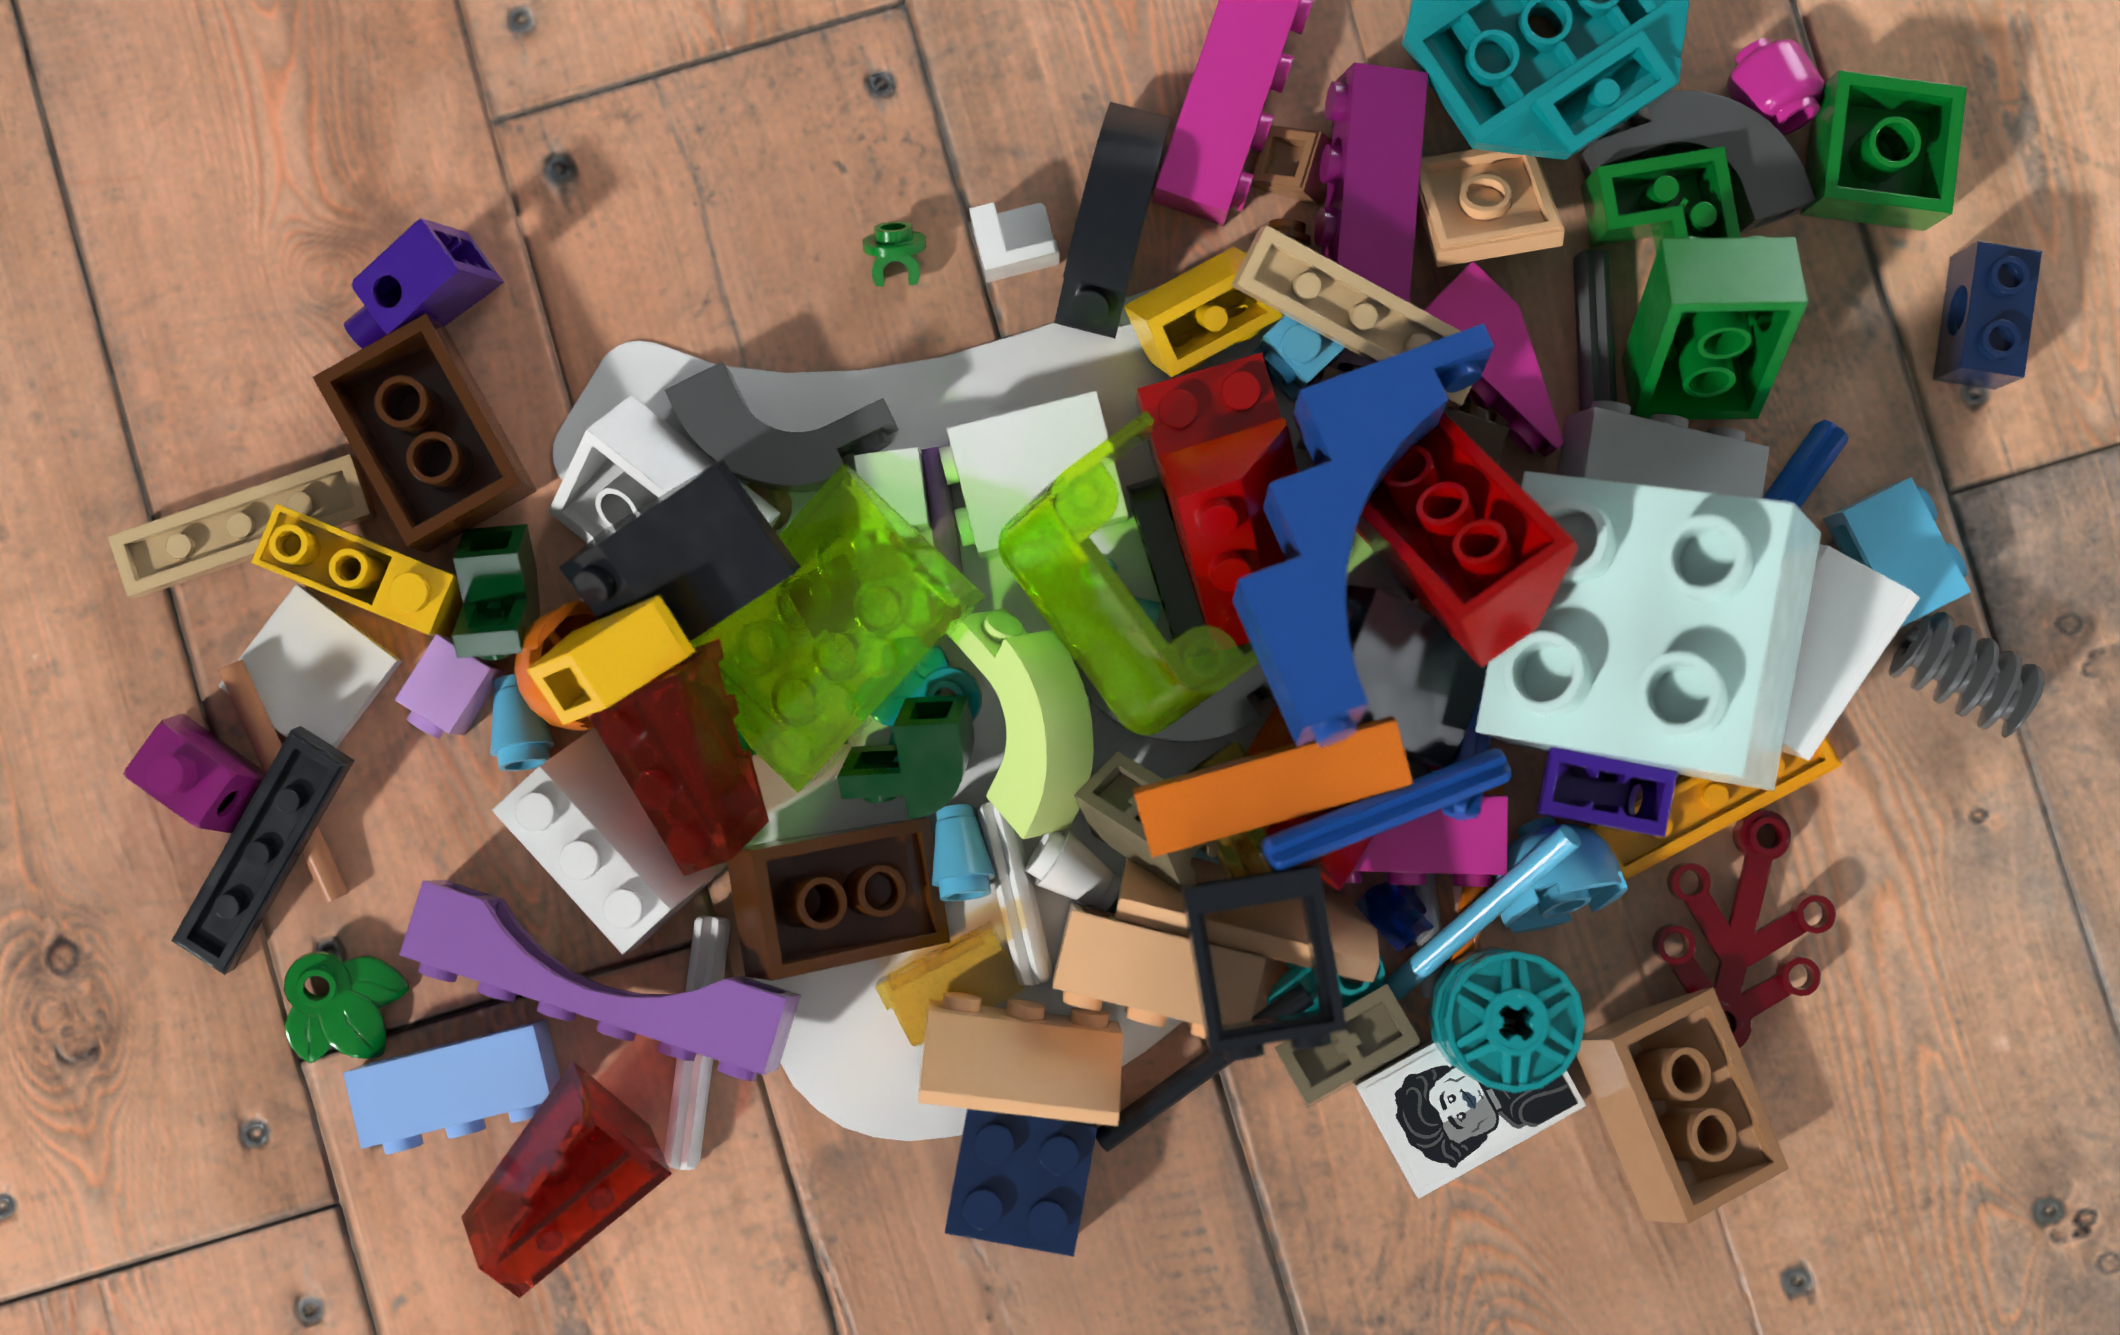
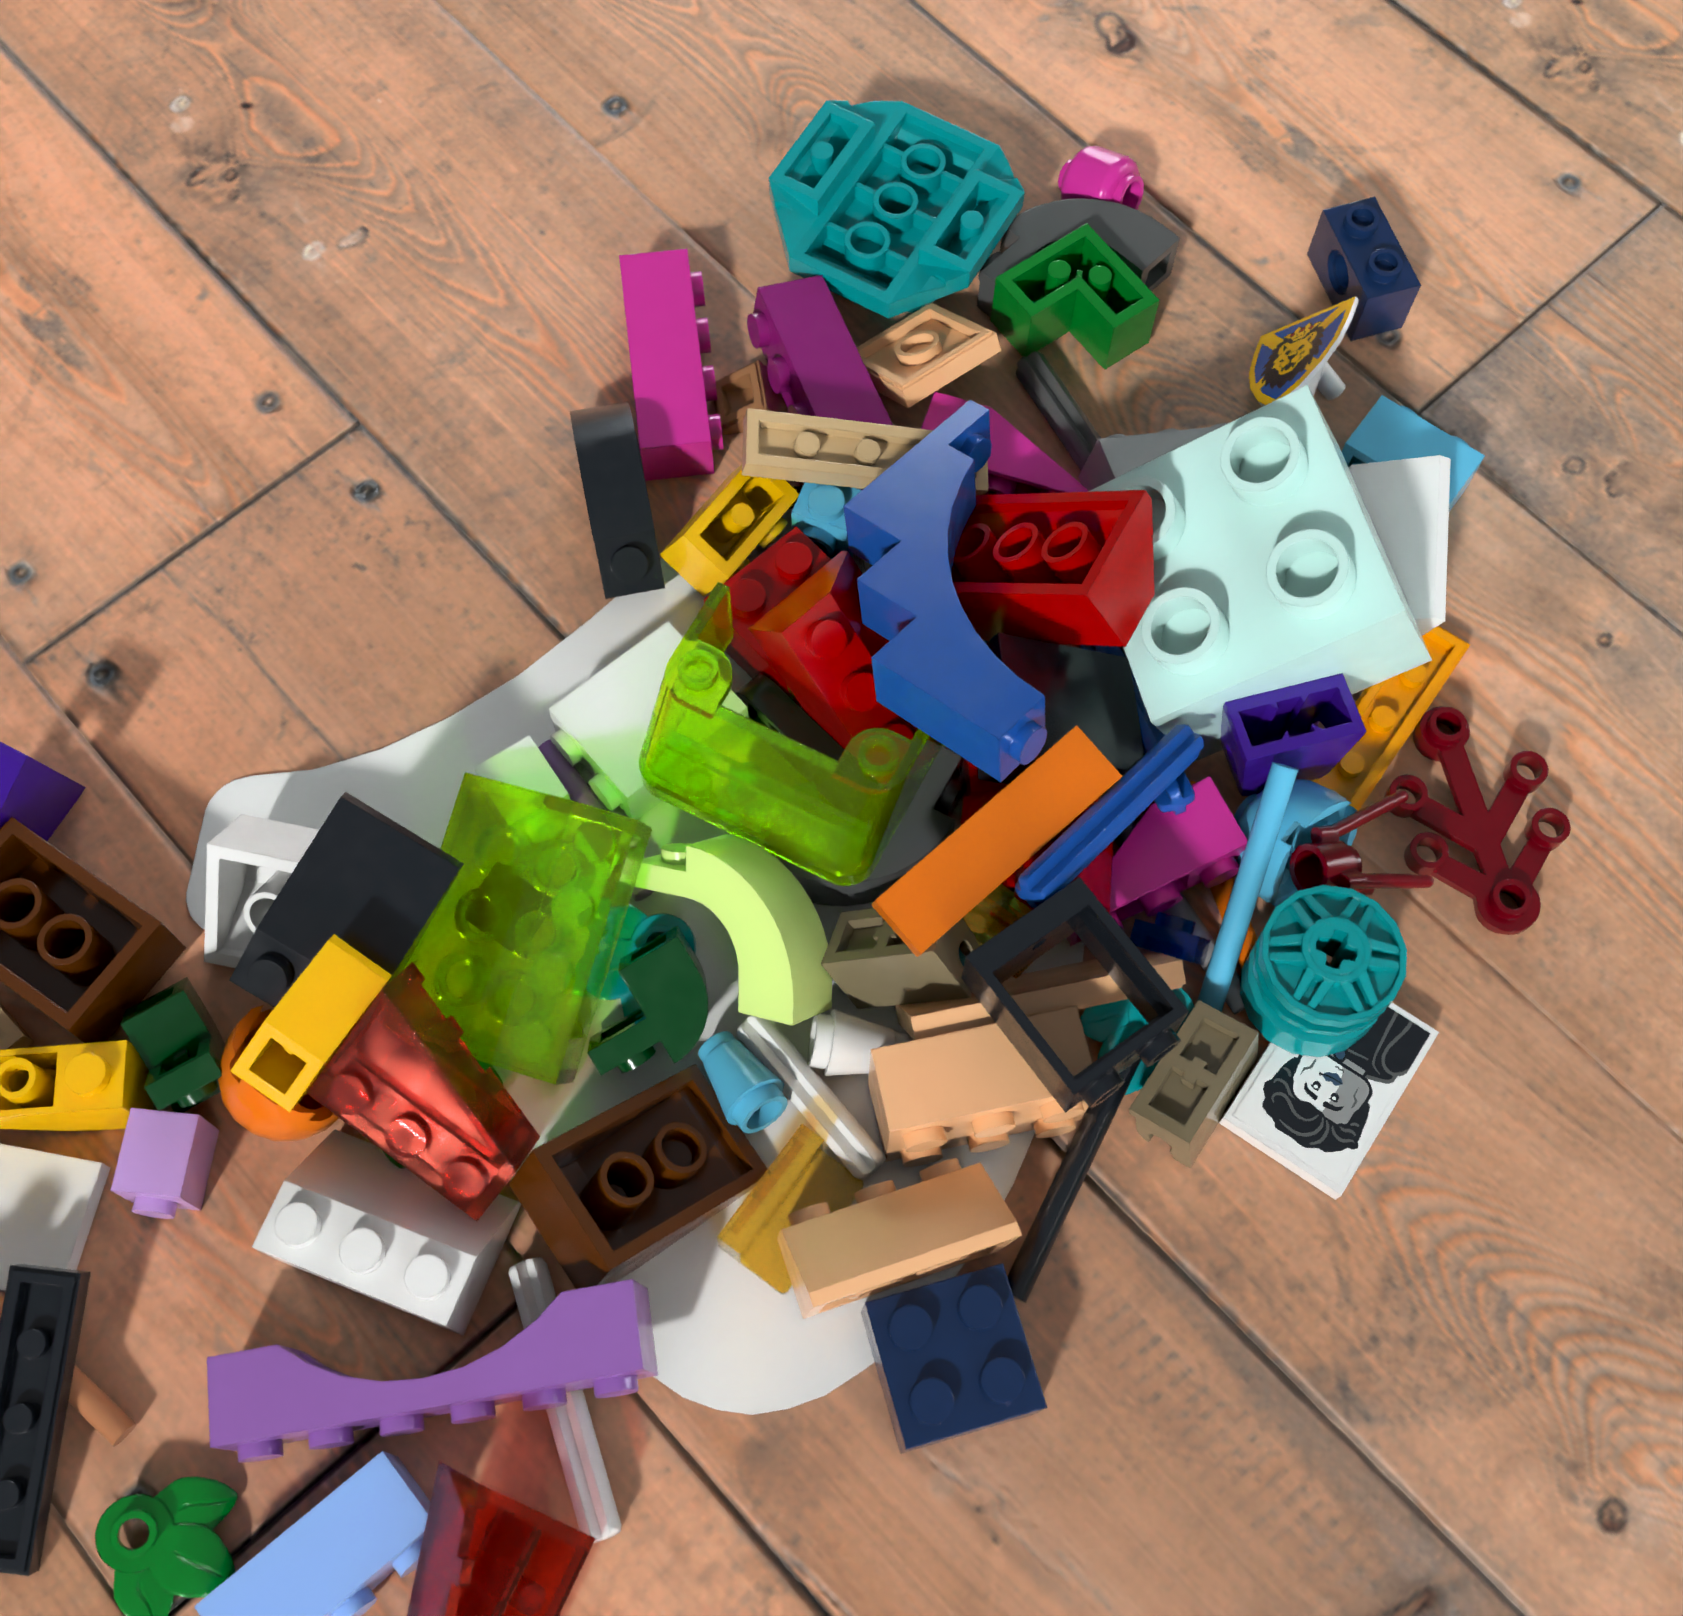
camera: 25 degrees left, 20 degrees down
(518, 734) = (249, 1167): medium azure cone -> none
(765, 456) = (415, 800): dark grey arch -> none
(894, 243) = (434, 595): green plate -> none
(1013, 240) = (538, 556): white panel -> none
(1570, 935) = (1340, 865): none -> dark red plant
(1680, 1107) = (1523, 987): medium nougat slope -> none
(1713, 326) = (1158, 339): green brick -> none
(1856, 389) = (1299, 355): none -> shield
(1885, 150) = (1213, 188): green brick -> none
(1971, 670) = (1524, 519): dark grey piece -> none

